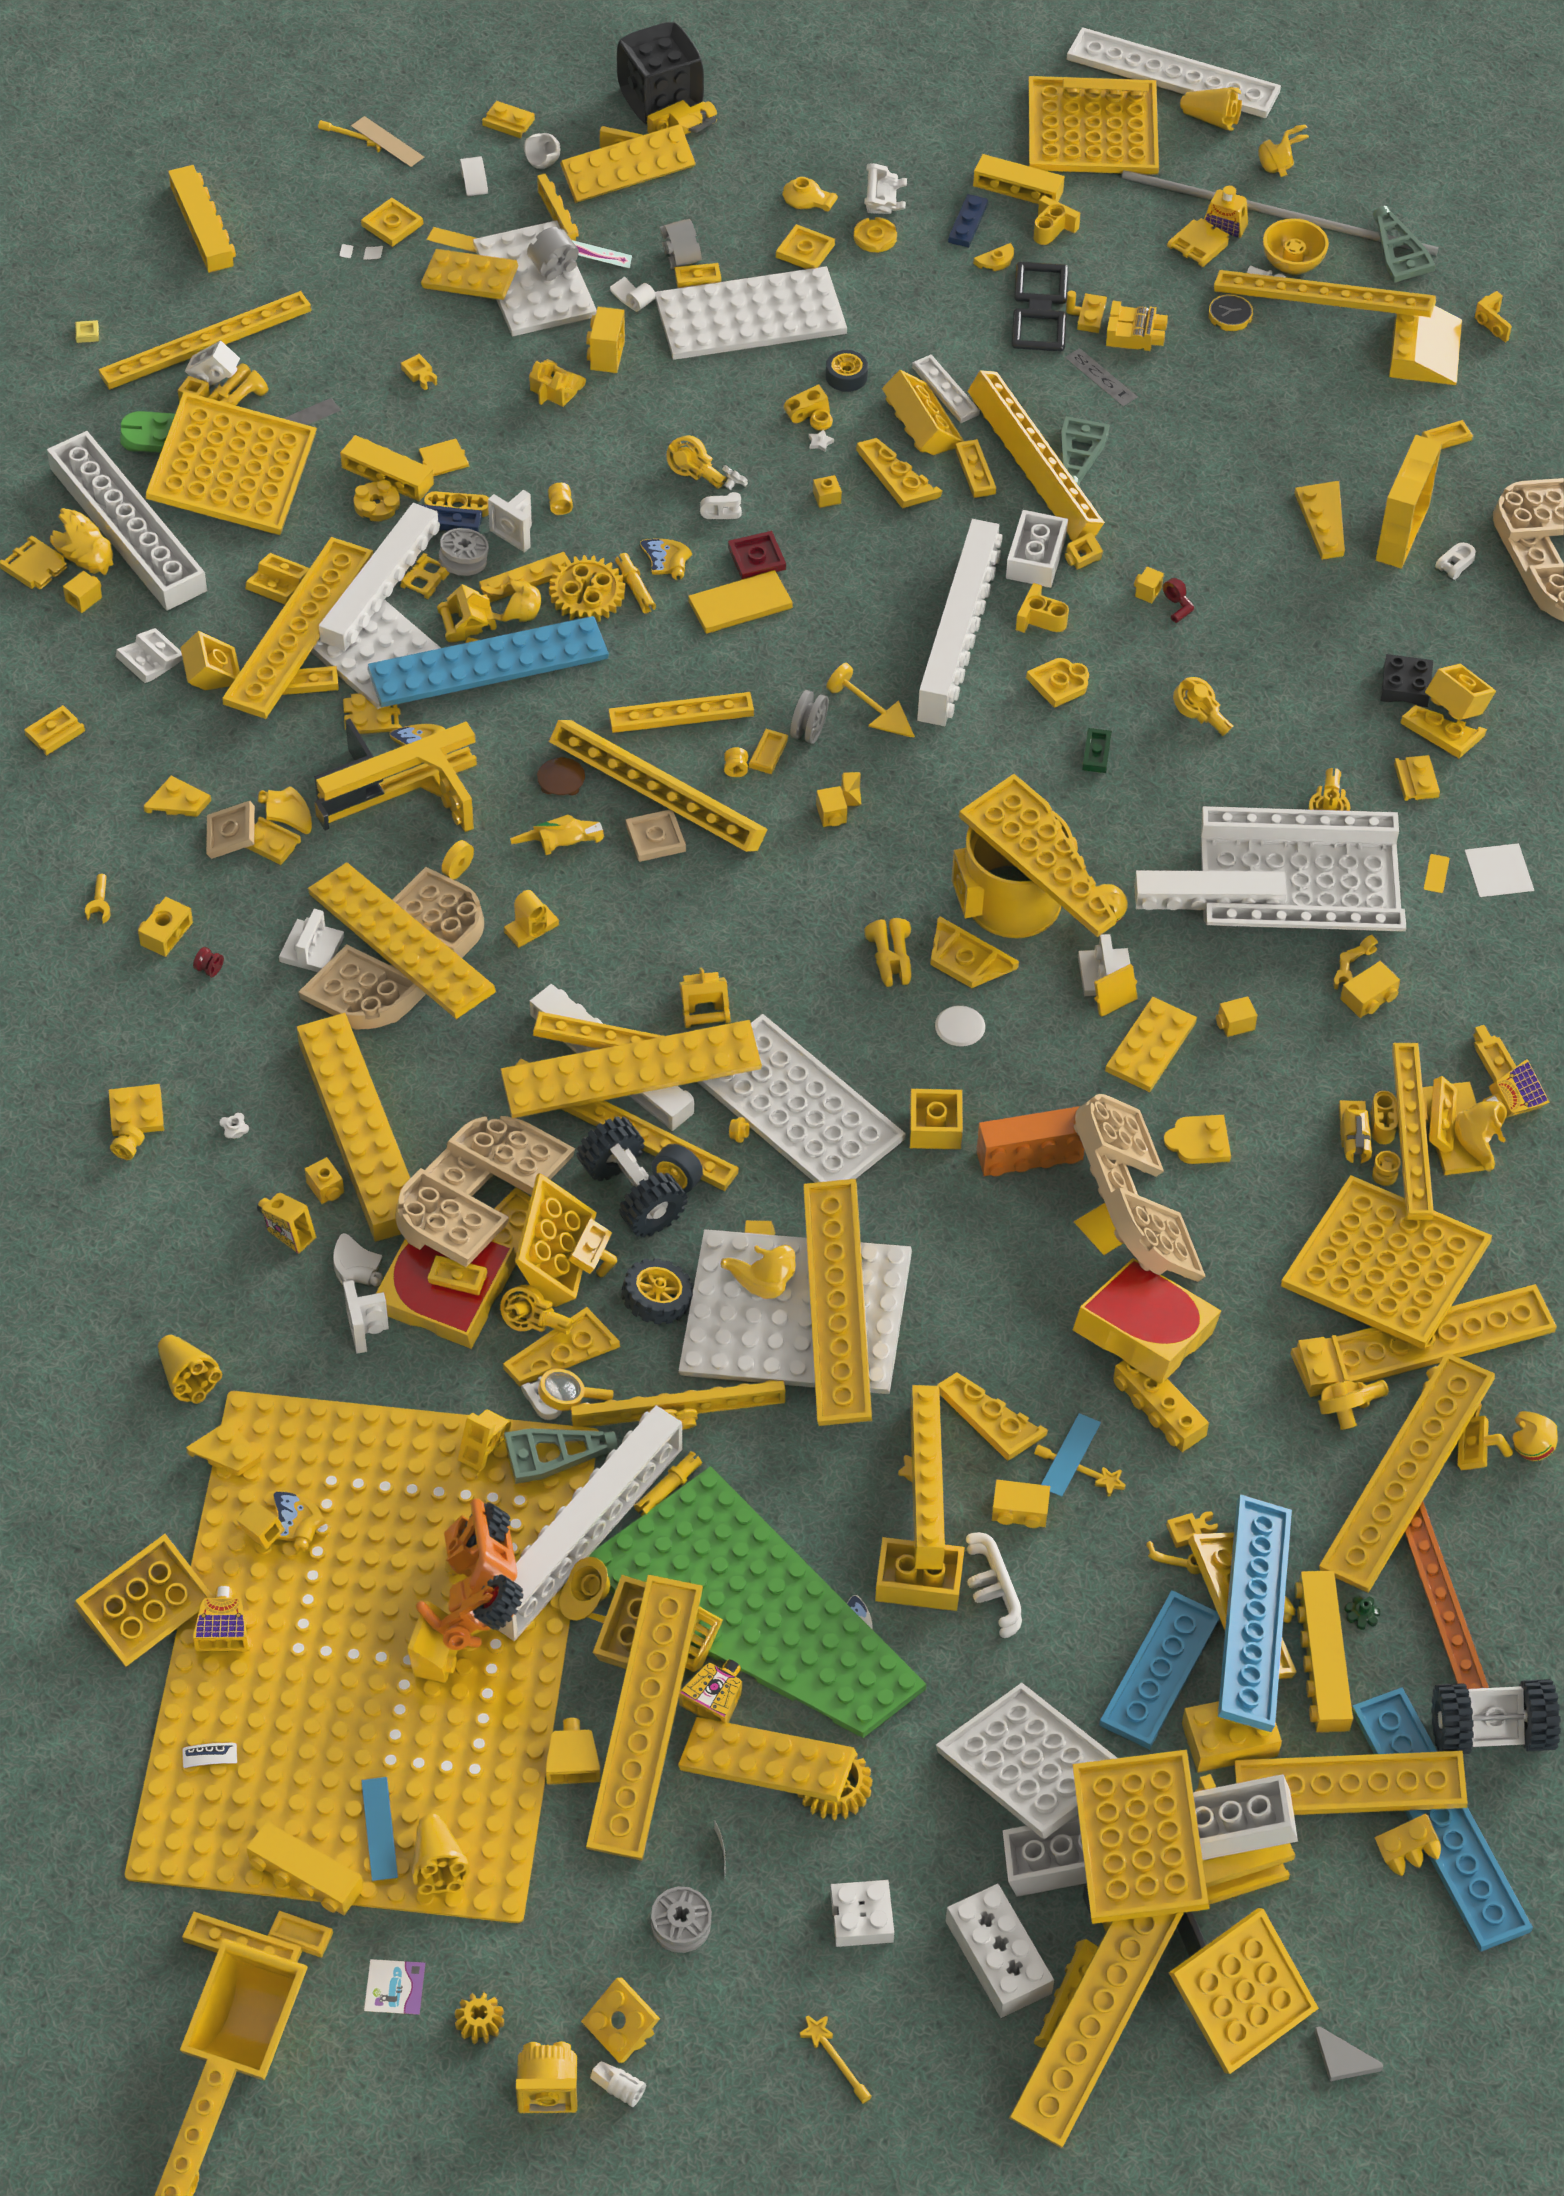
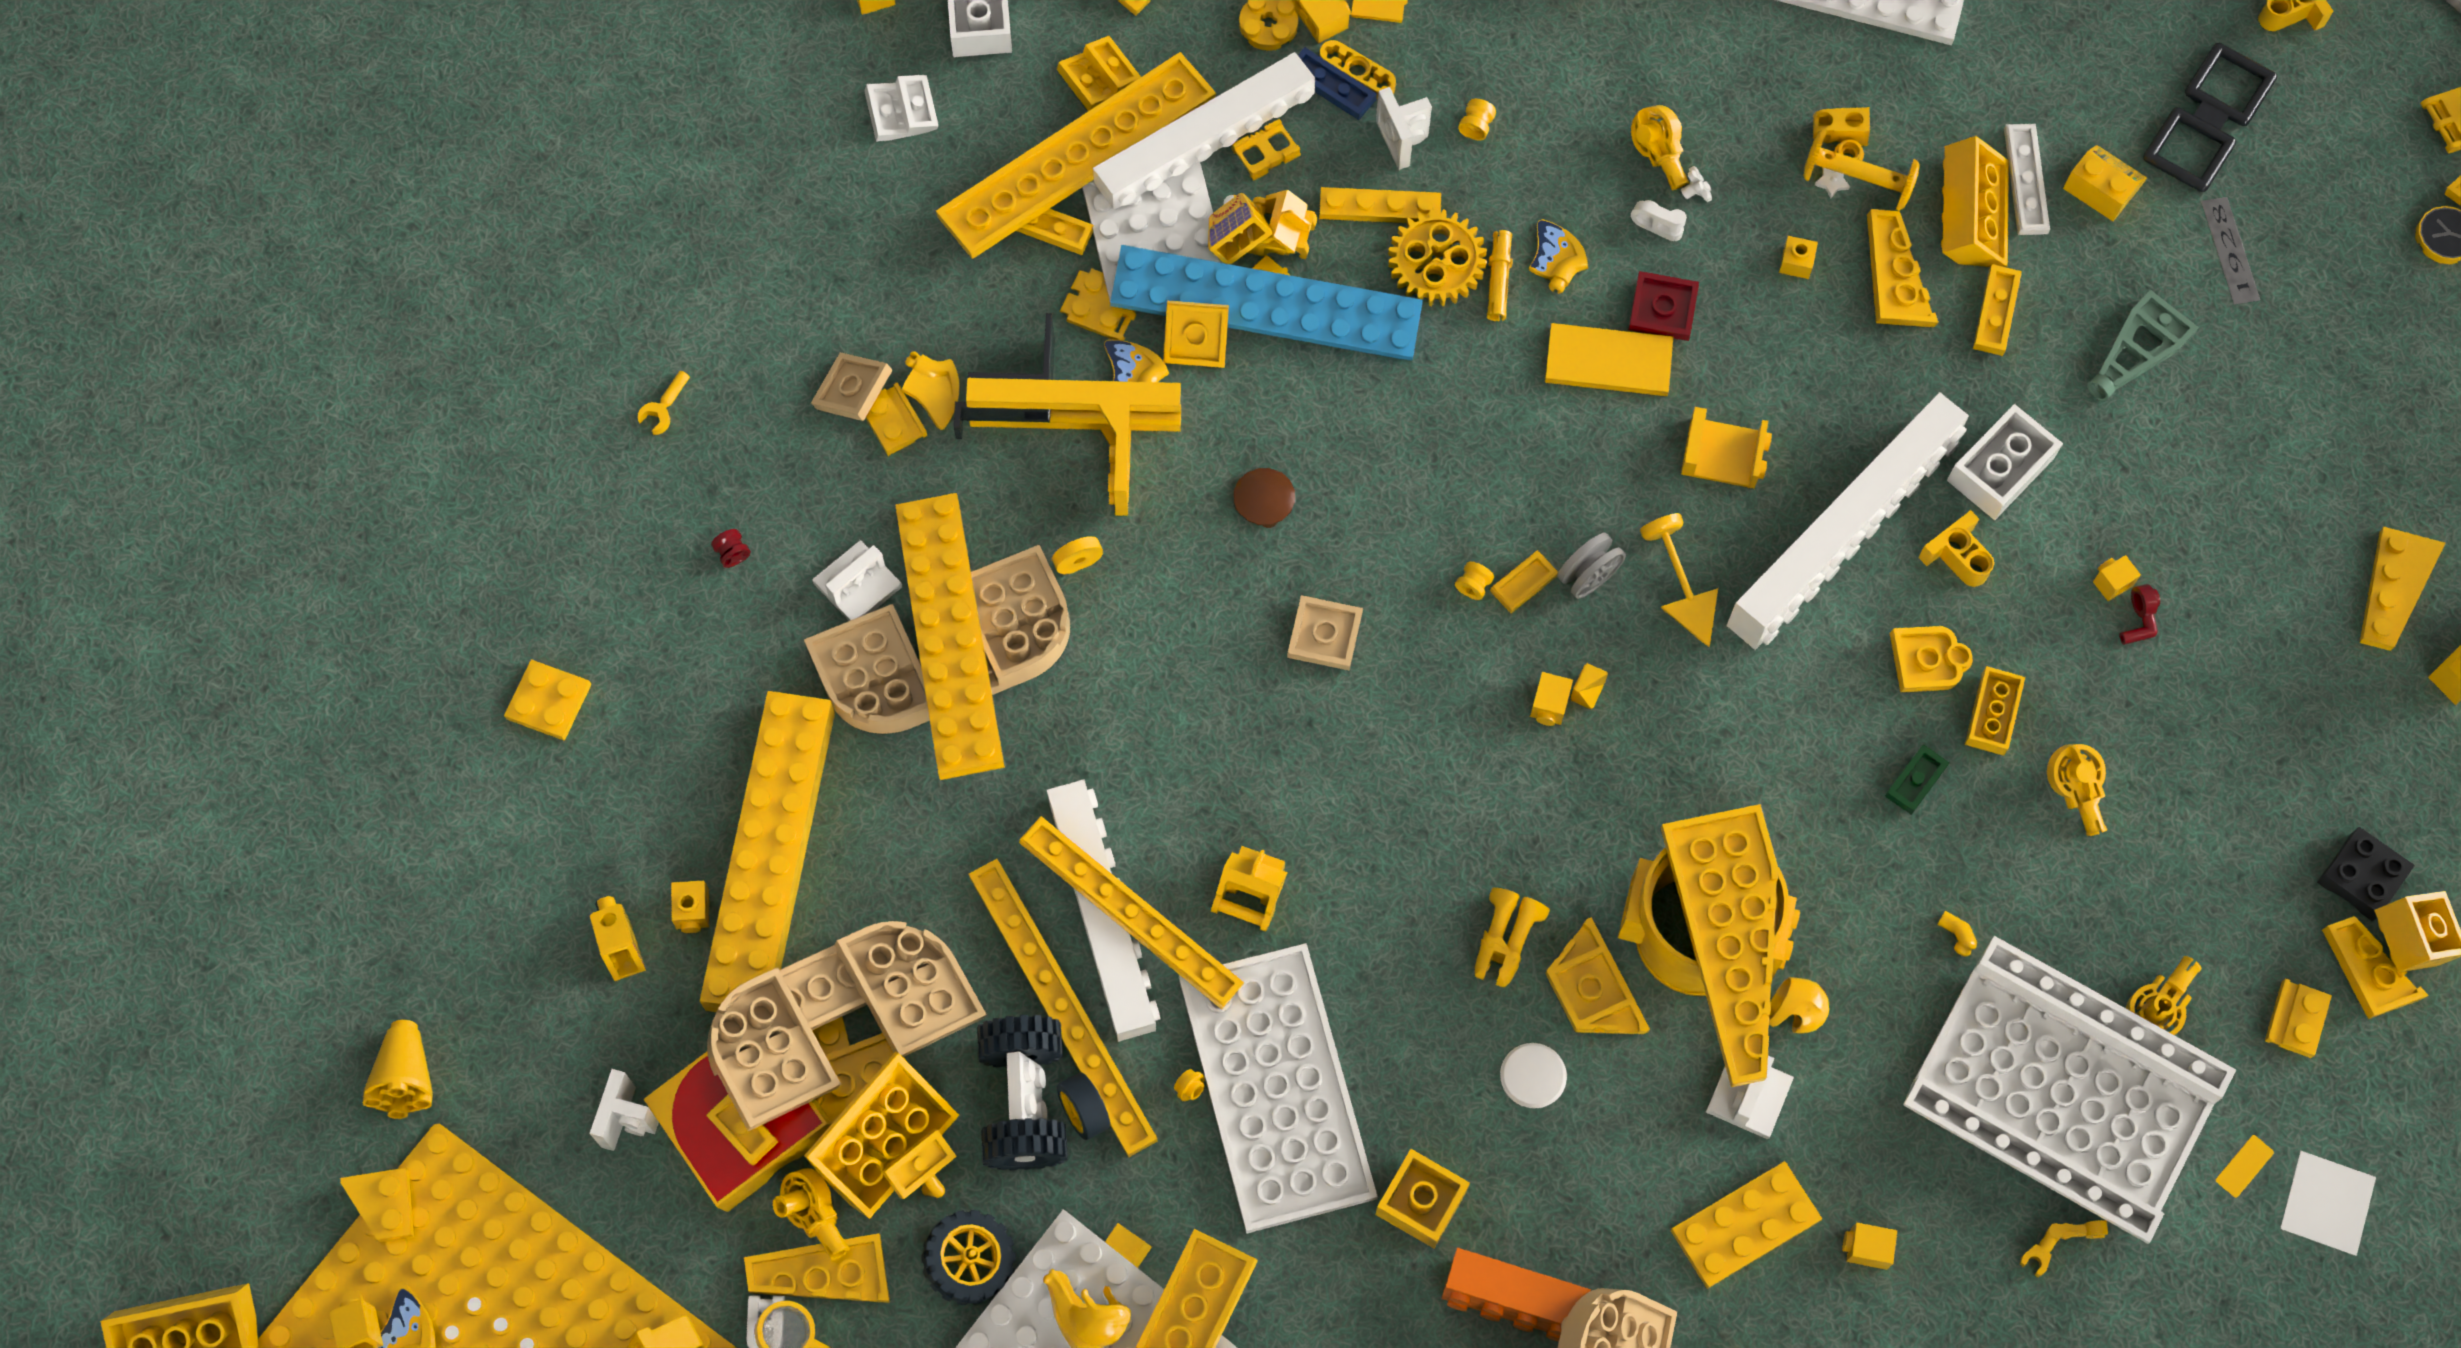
camera: 30 degrees right, 15 degrees up
(54, 730) = (741, 157): yellow plate -> none
(126, 1143) = (510, 739): yellow wheel -> none
(165, 926) = (704, 492): yellow brick -> none
(178, 798) = (823, 312): yellow wing -> none
(209, 662) = (957, 151): yellow slope -> none
(234, 1131) = (643, 785): white plate -> none
(355, 1262) = (665, 1029): white arm -> none
(440, 622) = (1236, 228): none -> yellow torso
(452, 698) = (1196, 334): none -> yellow tile
(463, 551) = (1323, 139): light grey wheel -> none
(522, 605) = (1348, 246): yellow hair -> none
(531, 919) = (1115, 677): yellow tile -> none
(562, 832) = (1219, 578): yellow animal -> none
(630, 1068) = (1103, 948): yellow plate -> none
(658, 785) = (1363, 571): yellow brick -> none
(681, 712) = (1451, 479): yellow plate -> none
(846, 370) = (1923, 87): black wheel -> none
(852, 622) = (1725, 451): none -> yellow panel
(867, 419) = (1861, 170): none -> yellow hose
(996, 259) = (2194, 25): yellow plate -> none
(1005, 365) = (2104, 182): none -> yellow slope
(1034, 454) = (2077, 332): yellow brick -> none
(1087, 545) = (2070, 484): yellow brick -> none
(1090, 313) = (2266, 155): yellow plate -> none
(1115, 990) = (1741, 1133): yellow piece -> none
(1121, 691) = (1995, 711): none -> yellow piece
(1135, 327) = (2310, 202): yellow hips -> none
(1180, 822) = (1962, 931): none -> yellow arm
(1196, 888) = (1936, 1057): white brick -> none
(1370, 989) = (2060, 1296): yellow brick -> none

